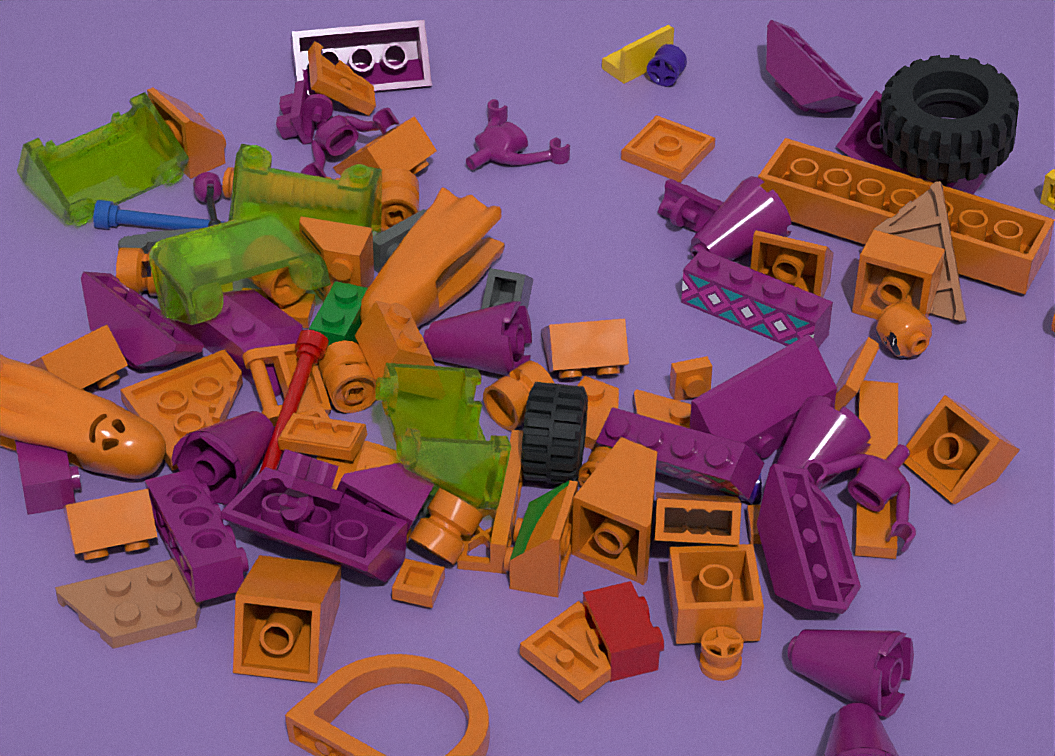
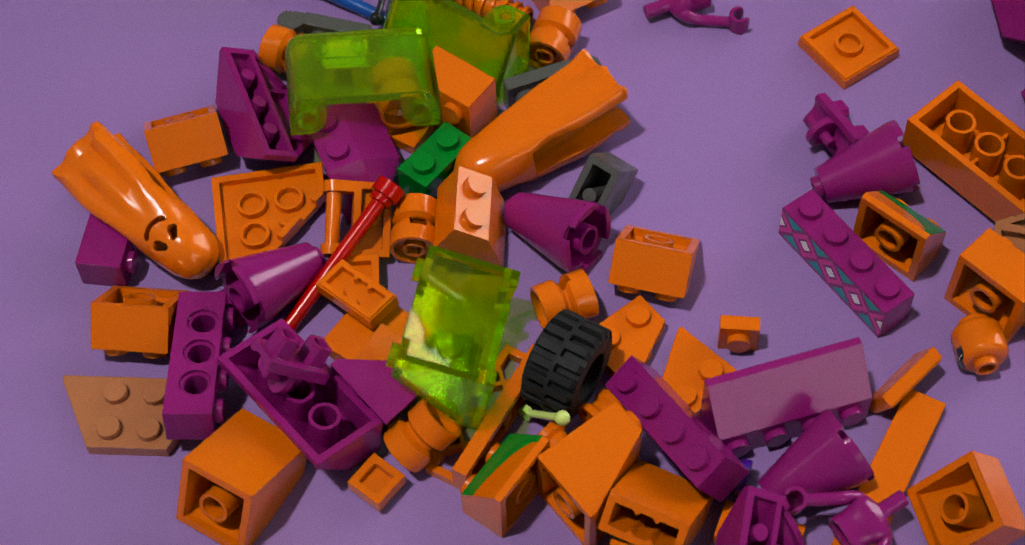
camera: 25 degrees right, 15 degrees up
(529, 493) = (562, 417): none -> yellowish green hinge

